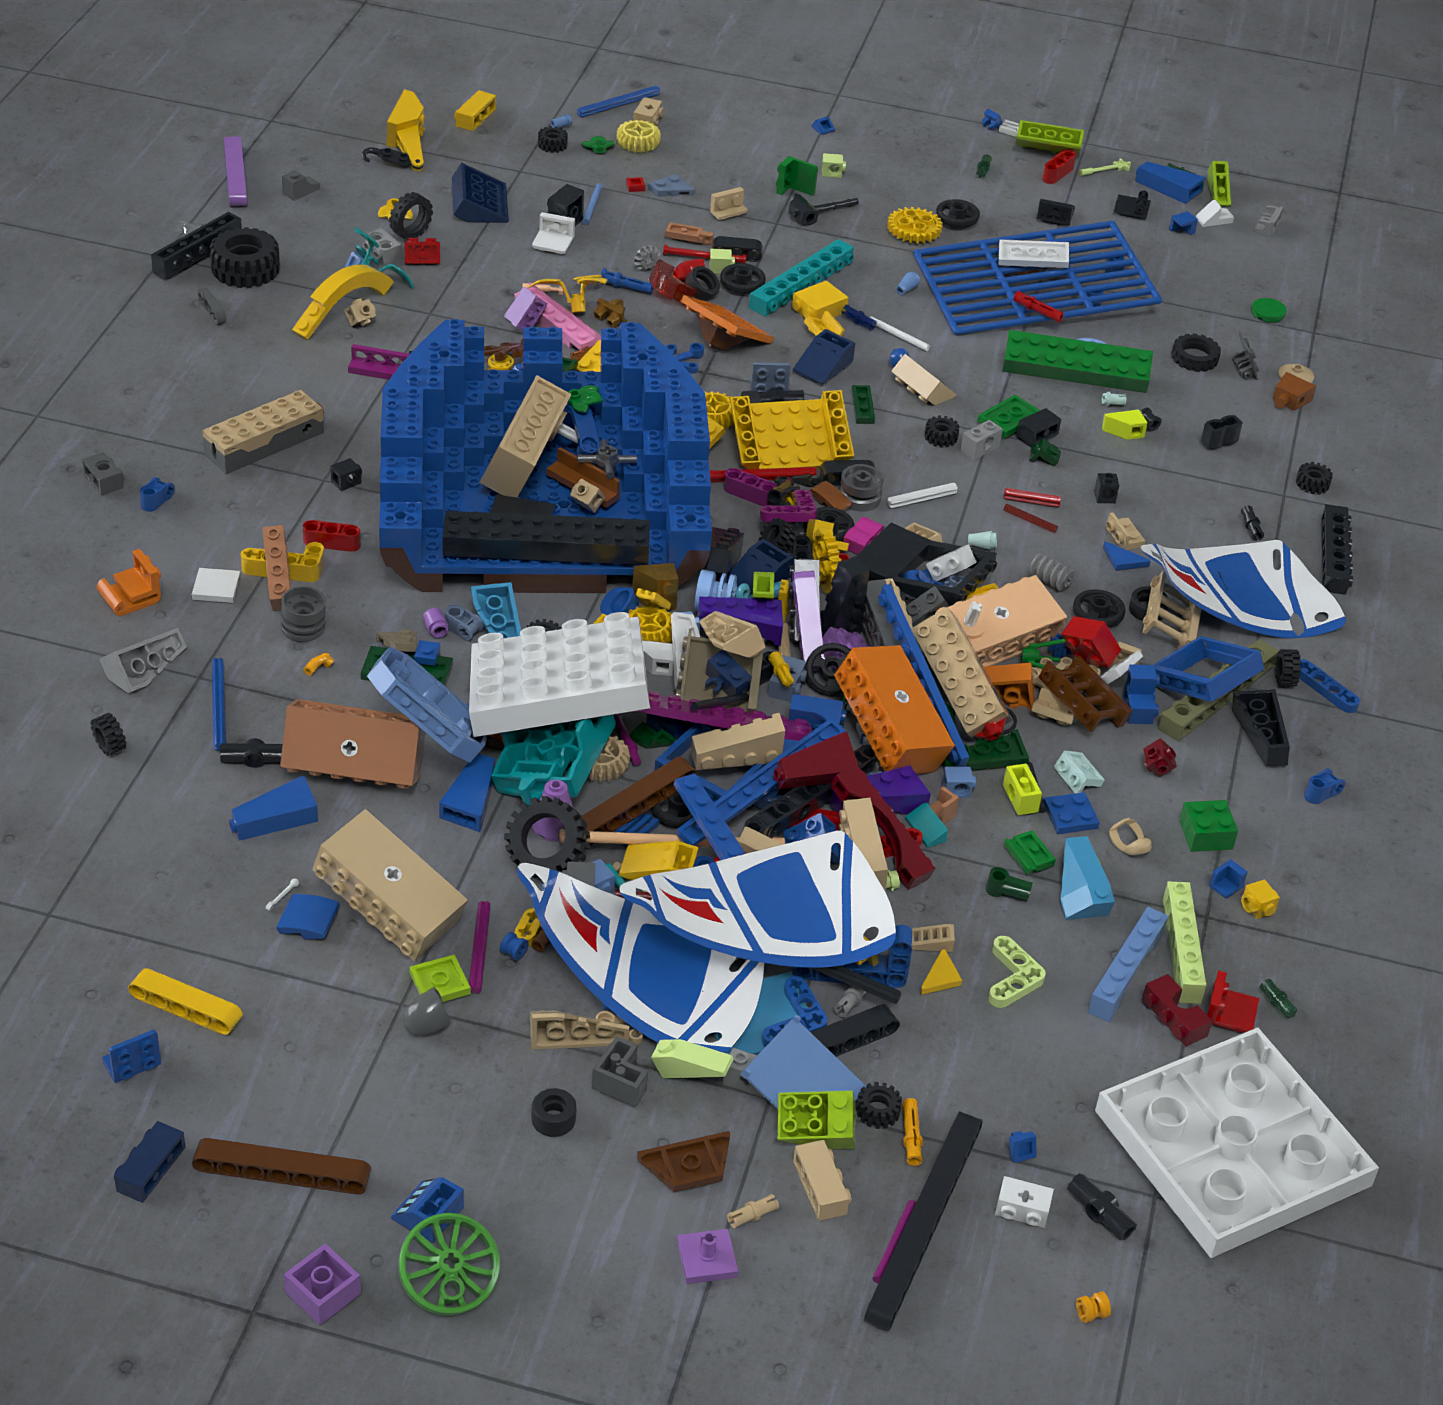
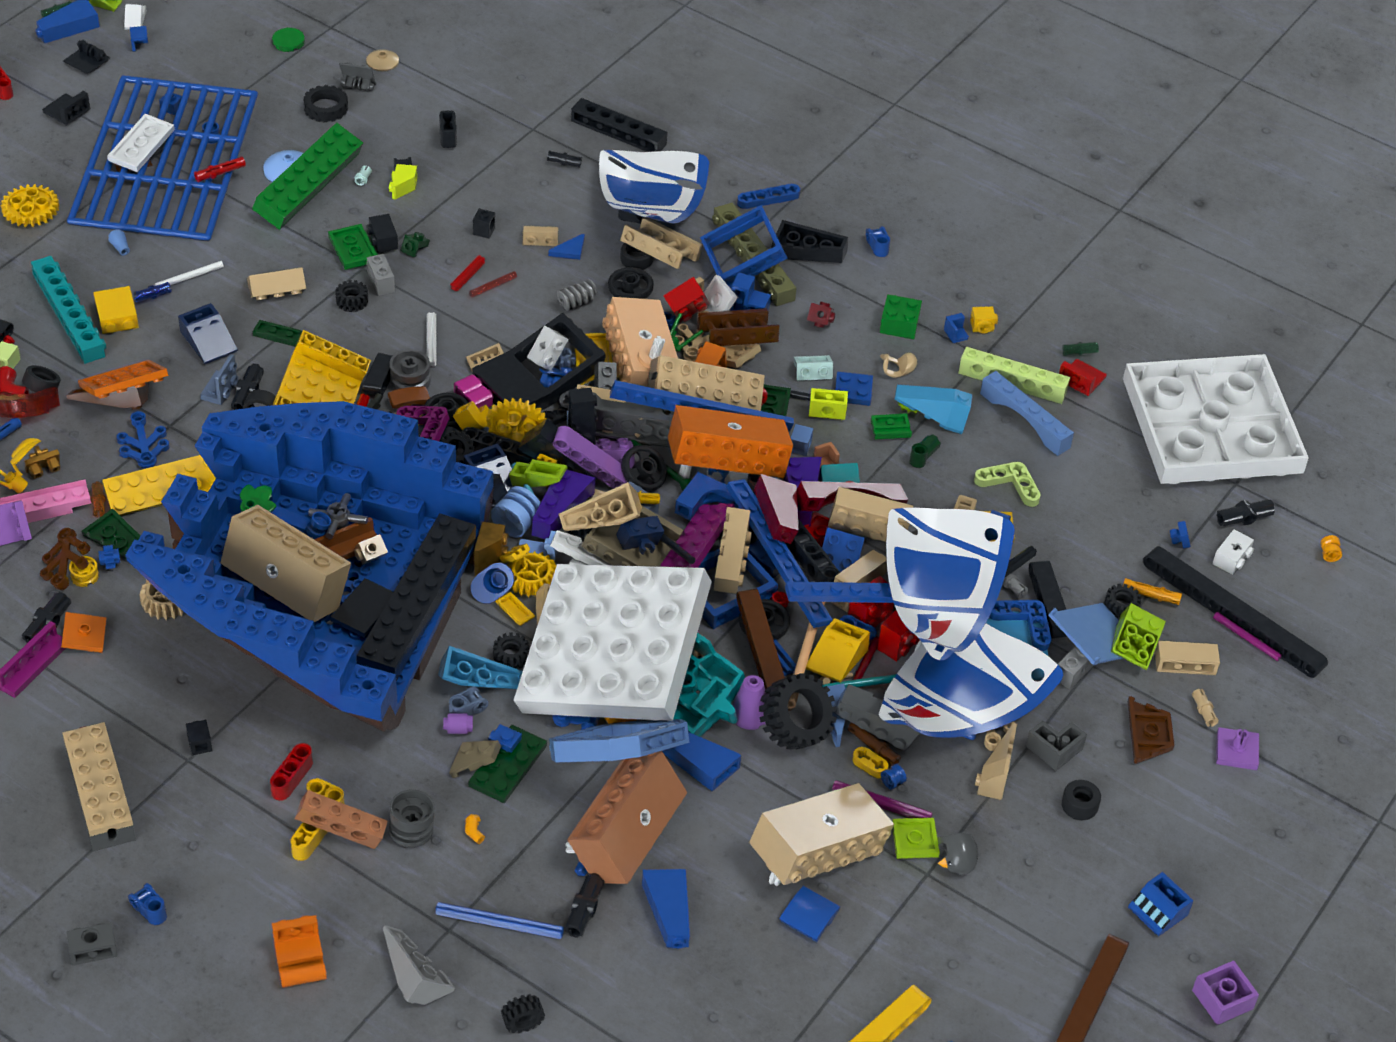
camera: 70 degrees left, 5 degrees up
(216, 585) = (318, 885): white tile -> none
(293, 883) = (784, 938): white hinge -> none
(455, 1276) = (1239, 903): bright green piece -> none
(688, 1060) = (1061, 694): yellowish green slope -> none
(742, 279) = (44, 349): black wheel -> none
(826, 322) = (158, 318): yellow bracket -> none
(896, 355) = (232, 286): blue piece -> none
(958, 213) = (29, 169): black wheel -> none
(983, 540) = (512, 321): light aqua cone -> none
(1121, 165) = (14, 42): yellowish green piece -> none
(1186, 1024) = (1064, 409): dark red arch -> none
(1288, 667) = (752, 198): black tyre -> none
(1293, 392) = (411, 70): dark orange torso -> none
(1314, 478) = (526, 103): black tyre -> none

